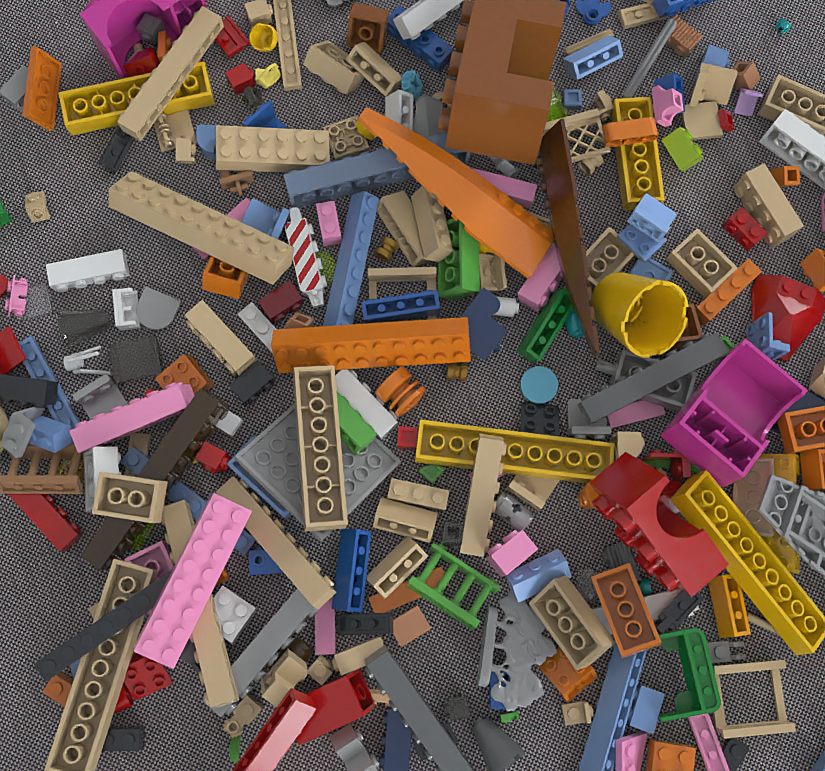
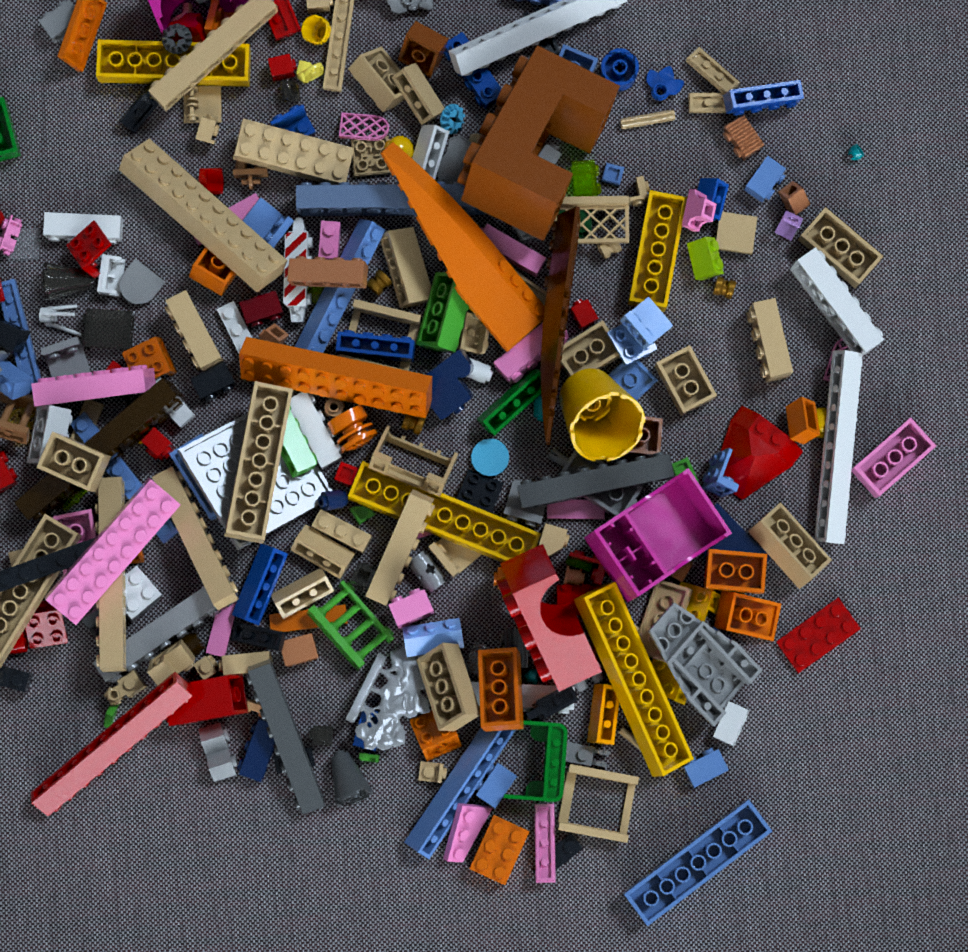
camera: 15 degrees right, 5 degrees up
(36, 206) = (48, 148): tan bracket -> none
(96, 284) = (88, 247): none -> red bracket
(140, 75) = (183, 44): none -> dark grey gear
(201, 193) = (212, 179): none -> red panel
(206, 139) = (231, 123): medium blue brick -> none
(261, 563) = (178, 555): blue brick -> none
(336, 248) = (327, 273): none -> nougat brick
(340, 104) = (364, 137): none -> bright pink window
(376, 382) = (330, 402): none -> light nougat brick
(401, 466) = (332, 500): none -> dark blue brick
(431, 225) = (427, 276): tan brick -> none
(441, 415) = (431, 484): none -> tan hinge
(591, 228) = (583, 313): none -> red brick
(593, 57) = (645, 137): light blue brick -> none
(630, 132) = (651, 230): orange beam -> none
(650, 58) = (701, 155): light grey axle -> none
(707, 171) = (724, 287): none -> pearl gold wheel
(713, 84) = (754, 199): tan bracket -> none
(726, 120) = (761, 239): red tile -> none
(726, 291) = (701, 415): orange brick -> none
(744, 229) = (741, 357): red brick -> none
(786, 175) = (799, 314): orange brick -> none

